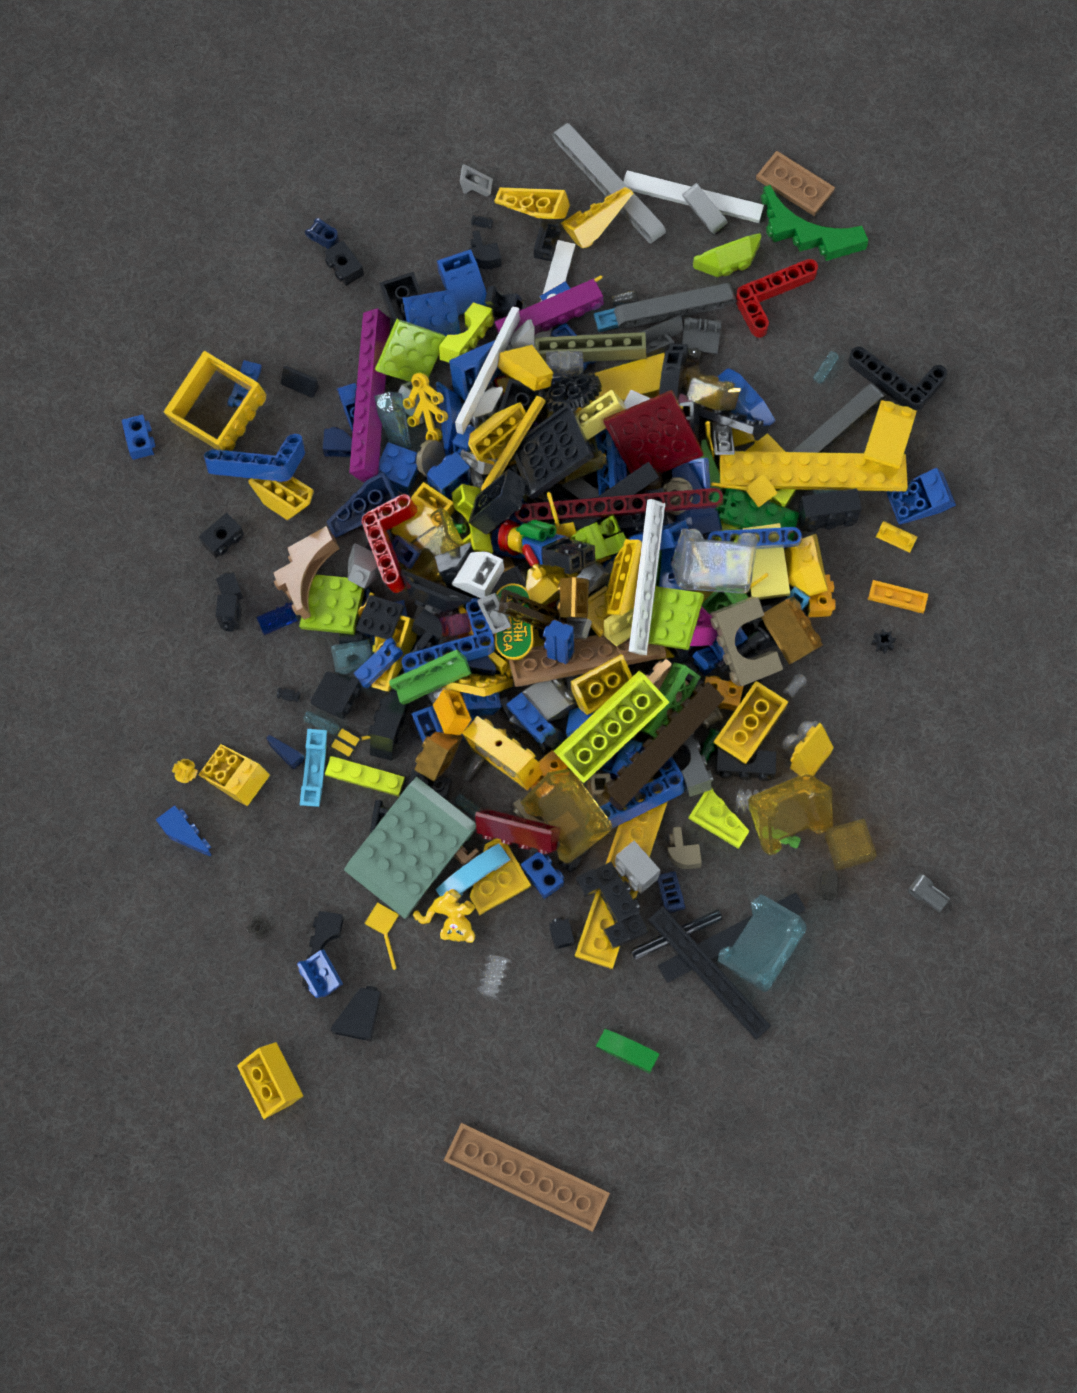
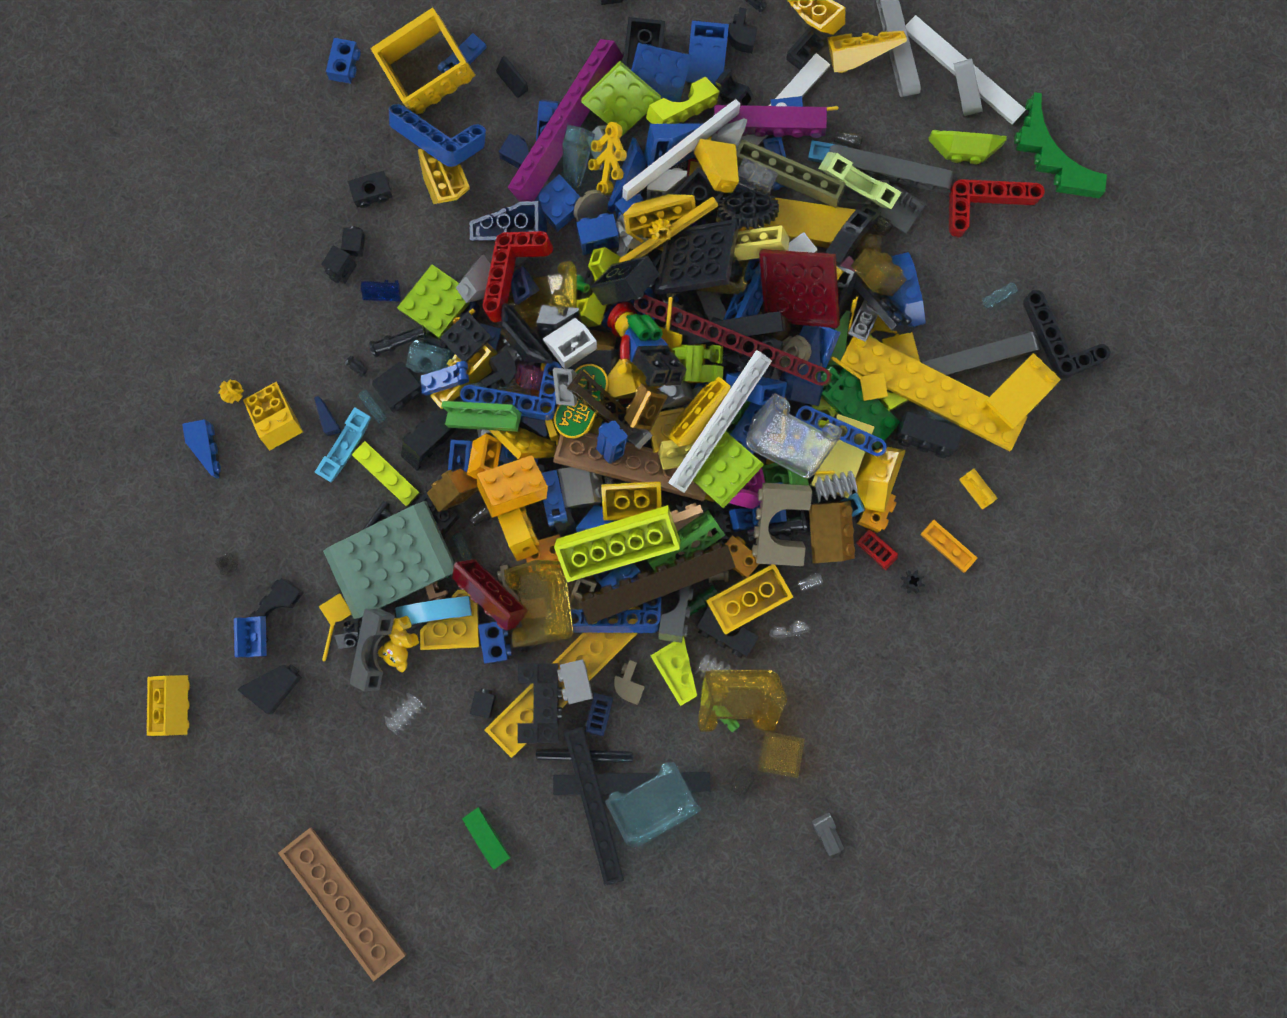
camera: 25 degrees right, 10 degrees up
(305, 561) = (431, 249): arch -> none
(309, 659) = (389, 342): none -> black pin
(346, 742) = (385, 434): piece -> none
(407, 930) = (347, 633): none -> black brick
(427, 502) = (565, 248): yellow slope -> none
(439, 955) = (366, 671): none -> dark grey arch
(492, 721) = (512, 486): none -> light orange brick
(507, 444) = (661, 225): none -> yellow gear
(677, 328) = (872, 189): none -> yellowish green arch
(774, 586) = (835, 486): none -> light grey piece
(795, 183) = (1067, 102): medium nougat plate -> none
(812, 752) = (787, 657): yellow slope -> none
(840, 623) = (885, 565): none -> red slope
(924, 497) = (1023, 464): blue slope -> none

